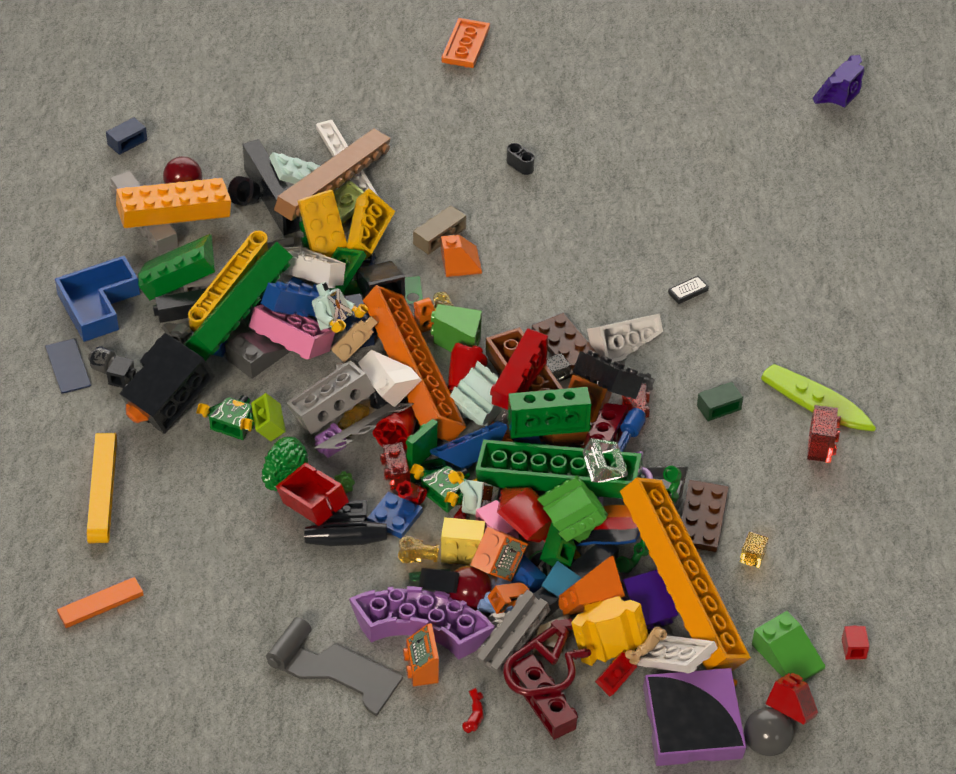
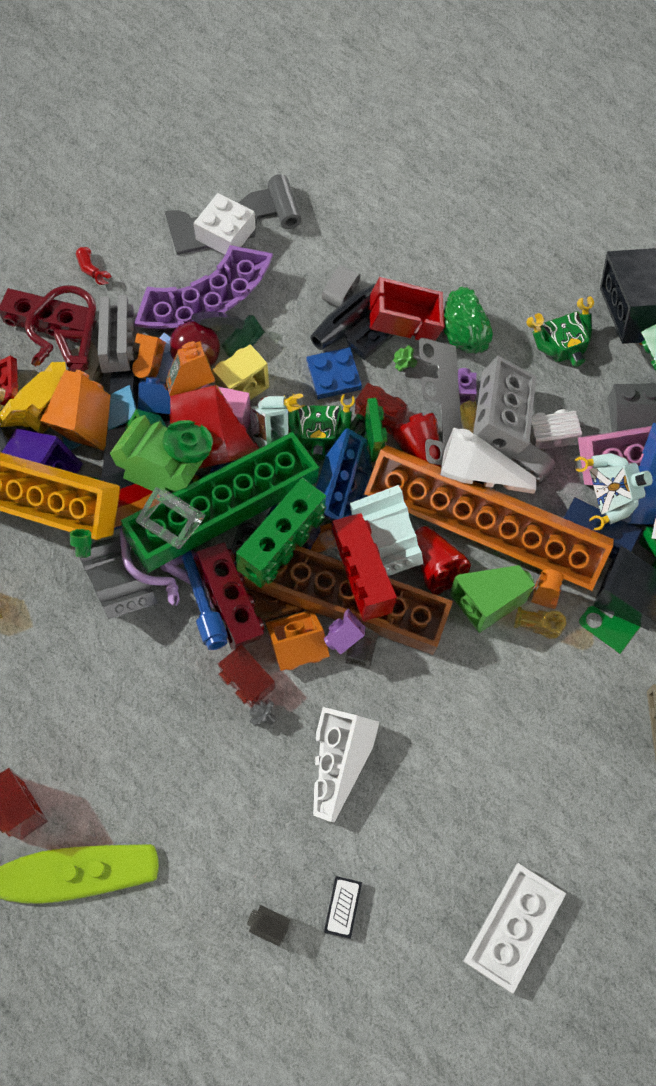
camera: 135 degrees right, 20 degrees up
(100, 602) = (454, 128): orange tile -> none
(102, 488) = (575, 199): yellow beam -> none
(268, 417) = (535, 356): lime brick -> none
(305, 376) = (555, 429): none -> white brick
(325, 556) = (341, 286): none -> light grey beam
(353, 339) = (569, 494): tan hinge -> none
(353, 653) = (224, 224): none -> white brick
(411, 492) = (336, 386): red piece -> none
(416, 550) = (278, 350): clear yellow connector -> none
(422, 657) = (168, 265): orange slope -> none
(459, 256) = (609, 710): orange slope -> none
(549, 497) = (187, 441): none -> green tile
(562, 358) = (344, 632): none -> medium lavender brick
(563, 338) = (388, 697): plate -> none
(608, 375) = (288, 660): black wedge -> none
(613, 225) = (514, 928): none -> white plate
(704, 513) = (68, 608): reddish brown plate -> none
(719, 401) = (165, 761): dark green brick -> none
(733, 304) = (268, 925): none -> clear smoke brick

